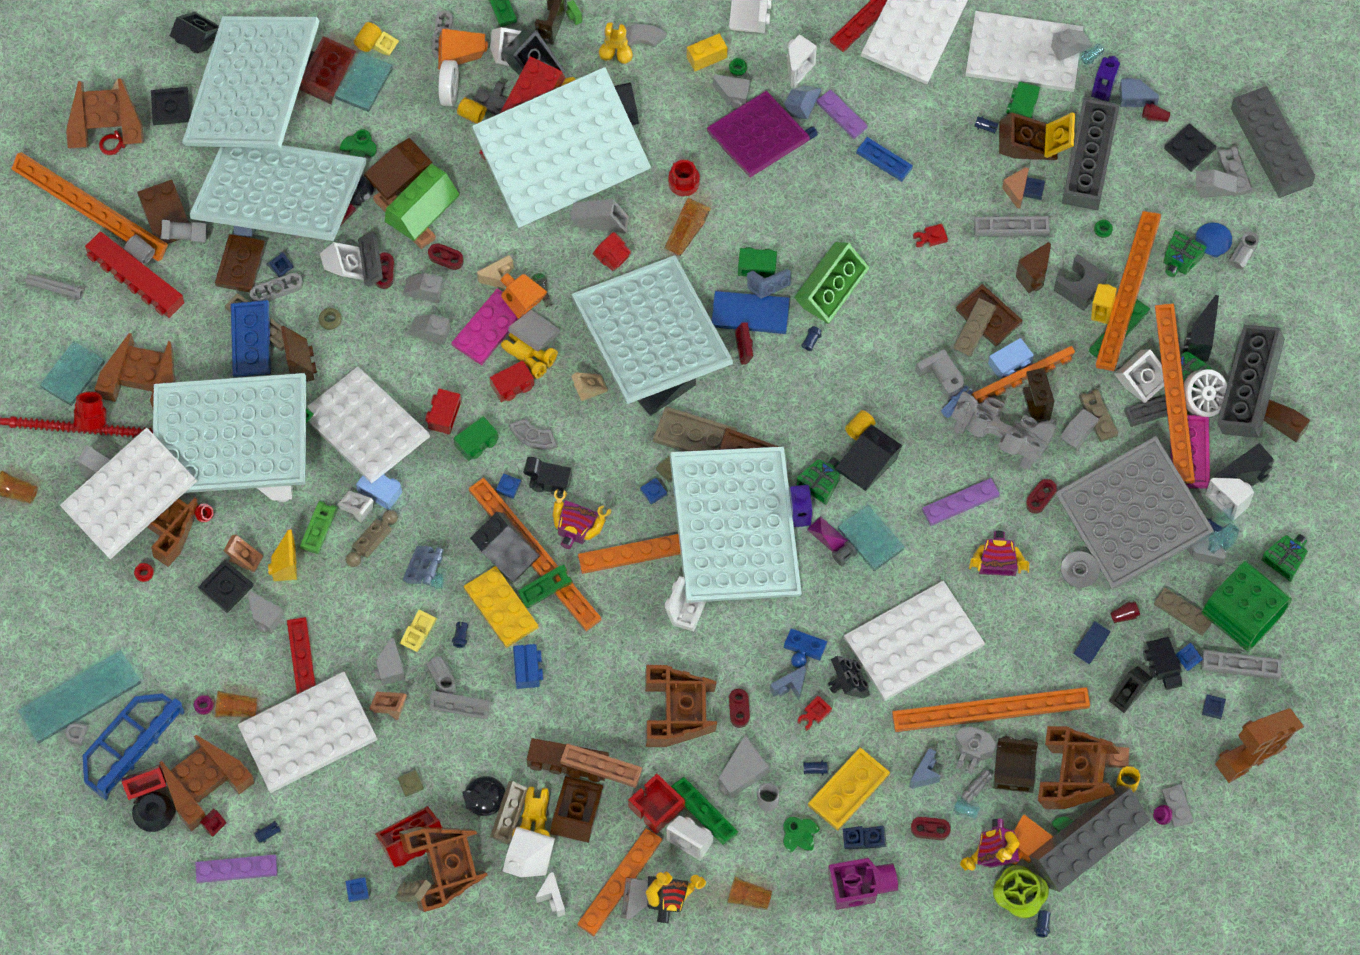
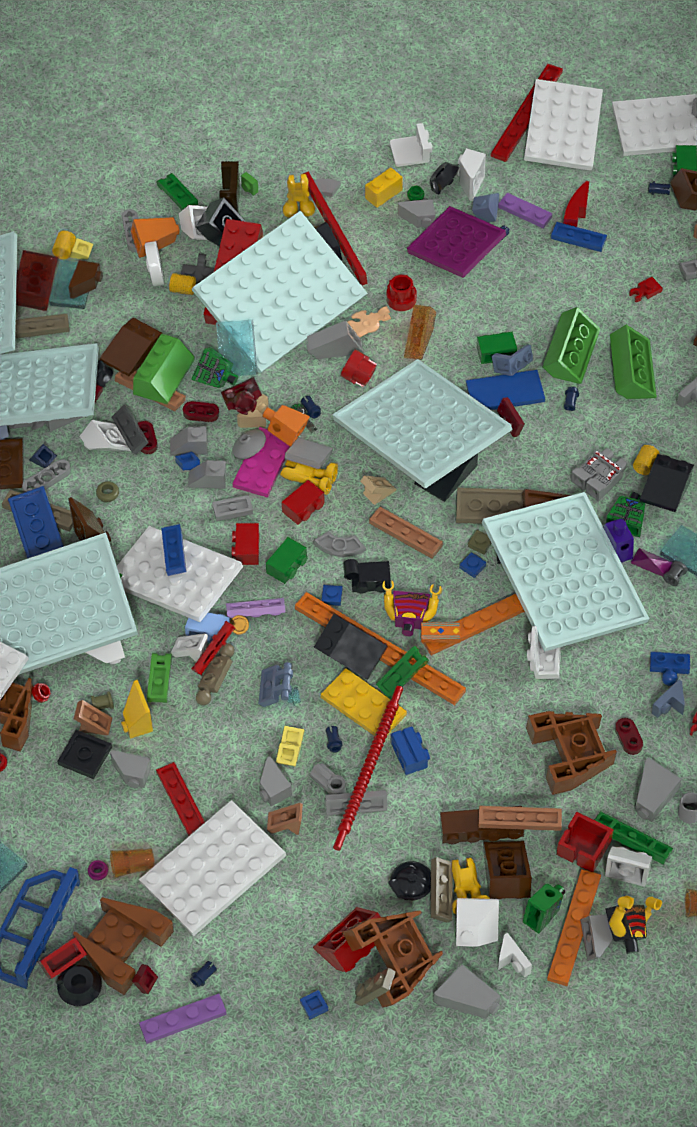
camera: 15 degrees left, 10 degrees down
(257, 538) = (102, 701): none -> olive bush
(320, 120) = (42, 326): none -> dark tan plate
(357, 147) = (82, 338): green plate -> none
(369, 402) = (173, 550): none -> blue plate
(373, 515) = (218, 641): none -> red pin
(375, 81) = (84, 278): none -> reddish brown slope
(410, 493) = (240, 623): none -> plate
(410, 783) = (332, 889): olive plate -> none
(415, 307) = (187, 461): none -> blue plate
(430, 480) = (256, 608): none -> lavender plate
(436, 729) = (367, 770): none -> red hose
(443, 369) = (232, 508): none -> light grey plate
(471, 215) = (214, 369): none -> green torso
(480, 305) = (249, 444): none -> light grey dish
(487, 252) = (242, 396): none -> dark red plate
(498, 199) = (237, 344): none -> clear light blue plate
(498, 919) = (467, 994): none -> light grey slope
(554, 281) = (312, 409): none -> dark blue pin
(596, 555) = (440, 632): none -> orange tile
(596, 855) = (546, 900): none -> green torso
(600, 439) = (406, 532): none -> nougat plate
(640, 202) = (370, 322): none -> light nougat piece
(641, 87) = (338, 233): none -> red tile
(769, 56) = (443, 176): none -> black piece
(809, 427) = (599, 473): none -> light grey hips
(886, 317) = (632, 364): none -> bright green slope
(894, 124) = (577, 205): none -> red slope

